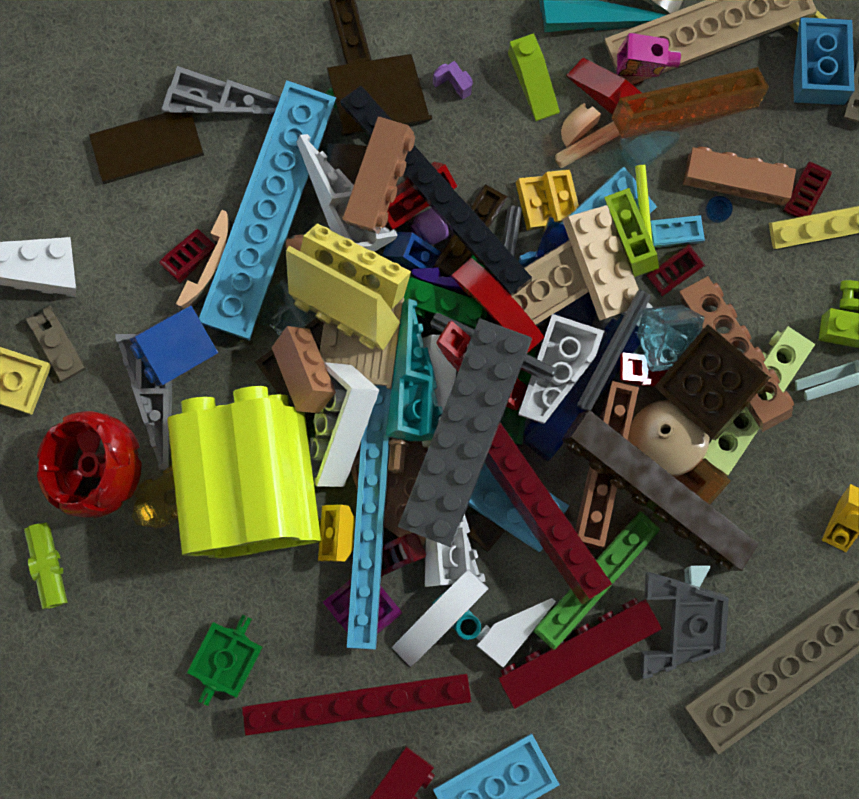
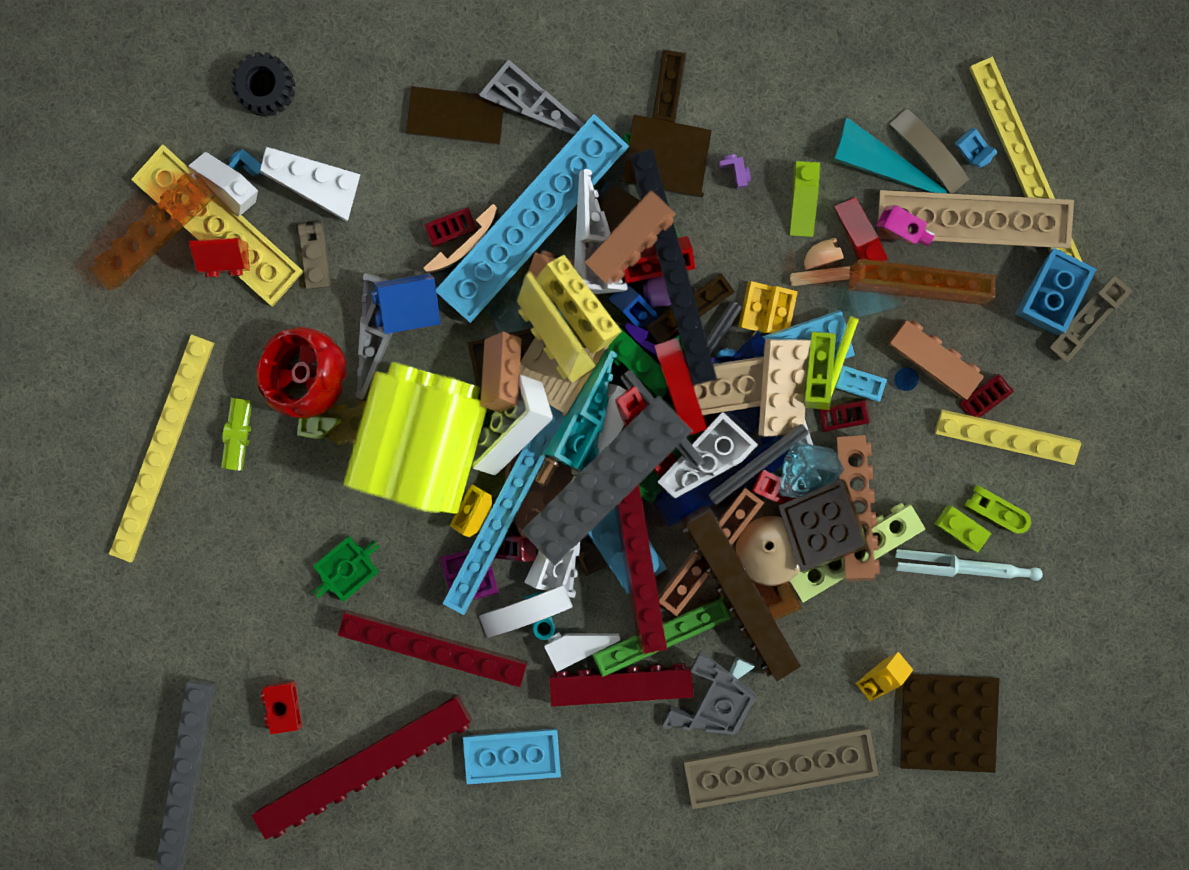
camera: 30 degrees right, 10 degrees up
(129, 518) = (316, 426): none -> lime tile

